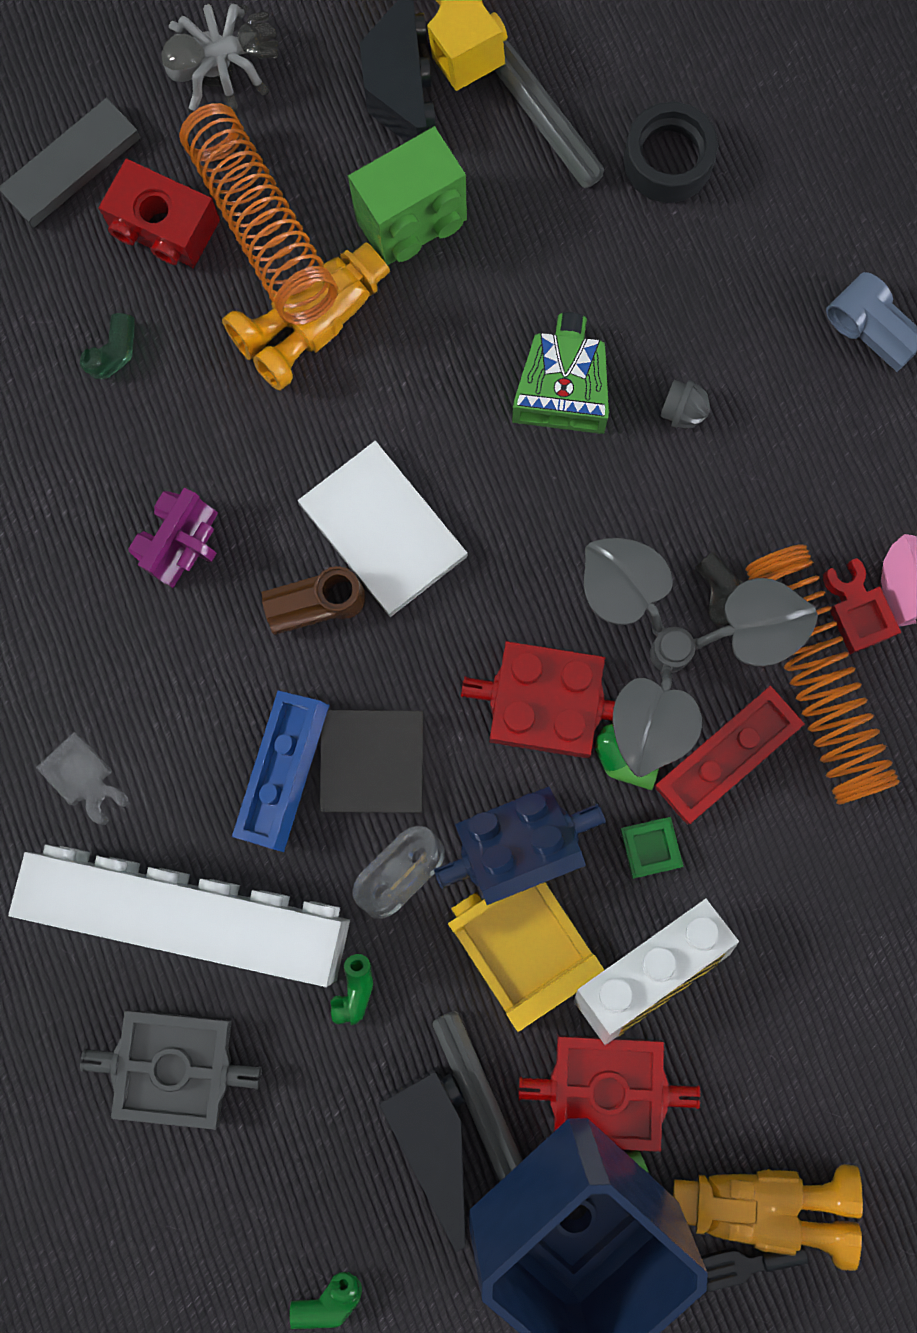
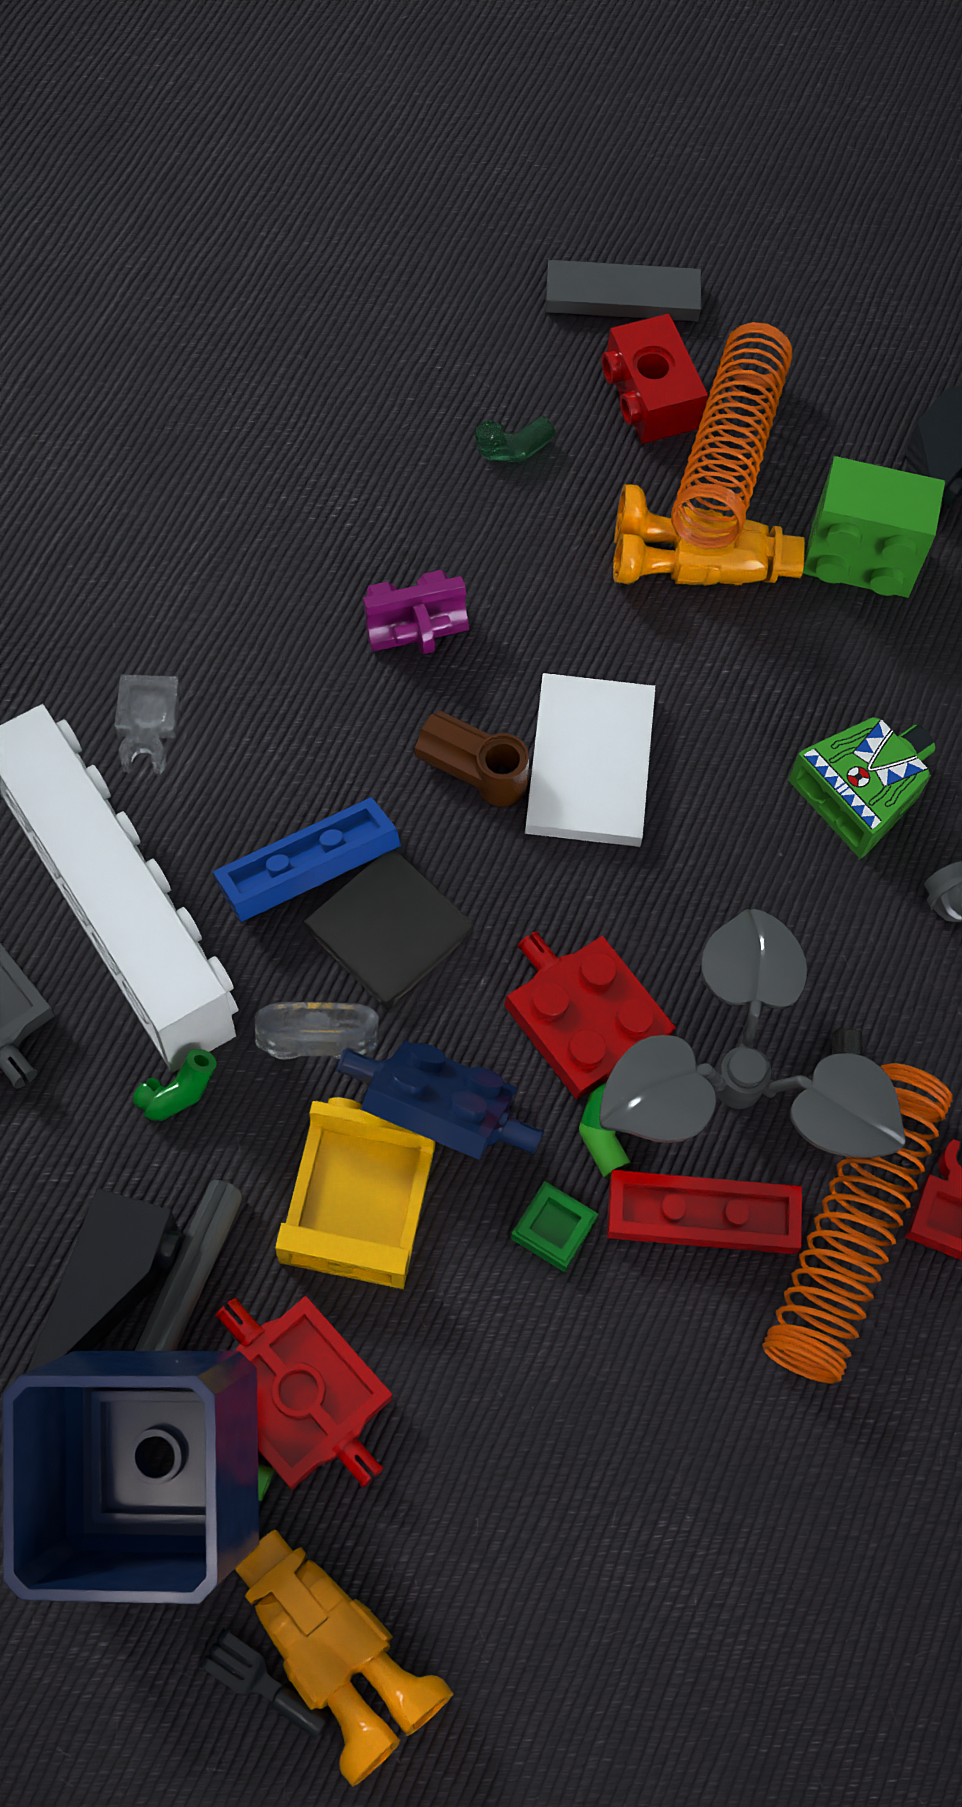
camera: 35 degrees right, 15 degrees down
(209, 56) = (818, 308): animal -> none
(655, 971) = (448, 1320): white brick -> none

